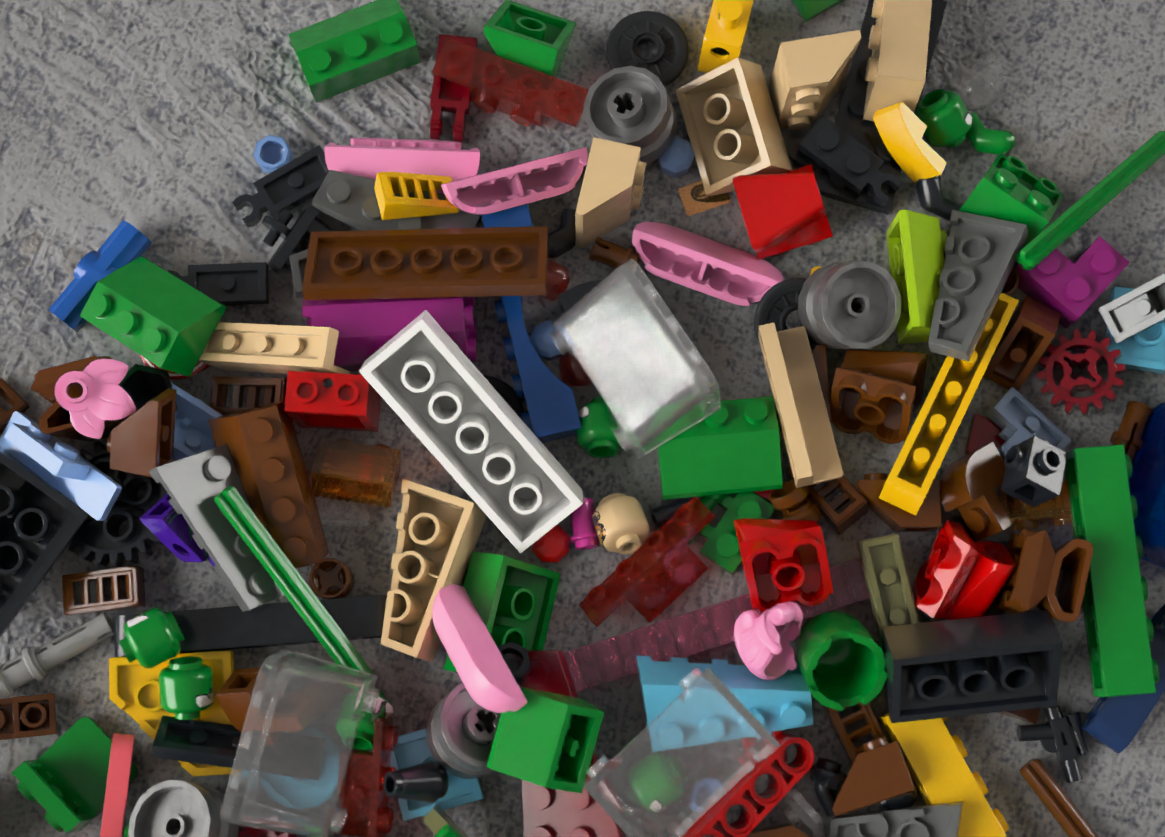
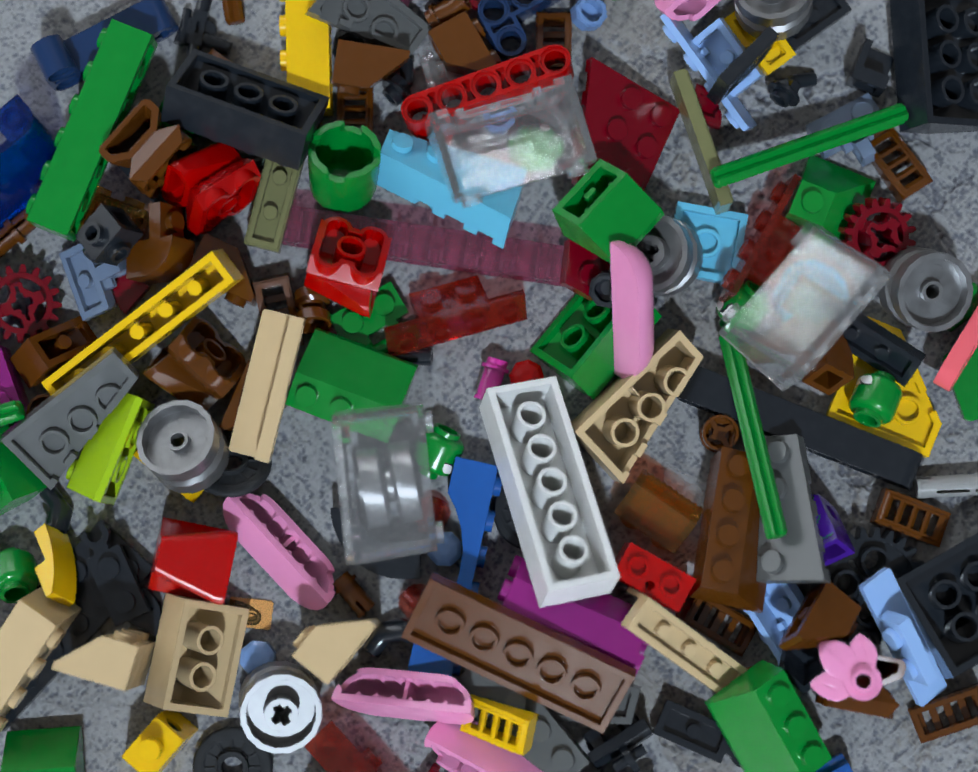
camera: 155 degrees left, 5 degrees up
(151, 638) = (886, 449): green head -> none
(418, 782) = (722, 233): black cone -> none
(620, 523) = (462, 363): tan head -> none
(766, 639) = (395, 208): bright pink hair -> none

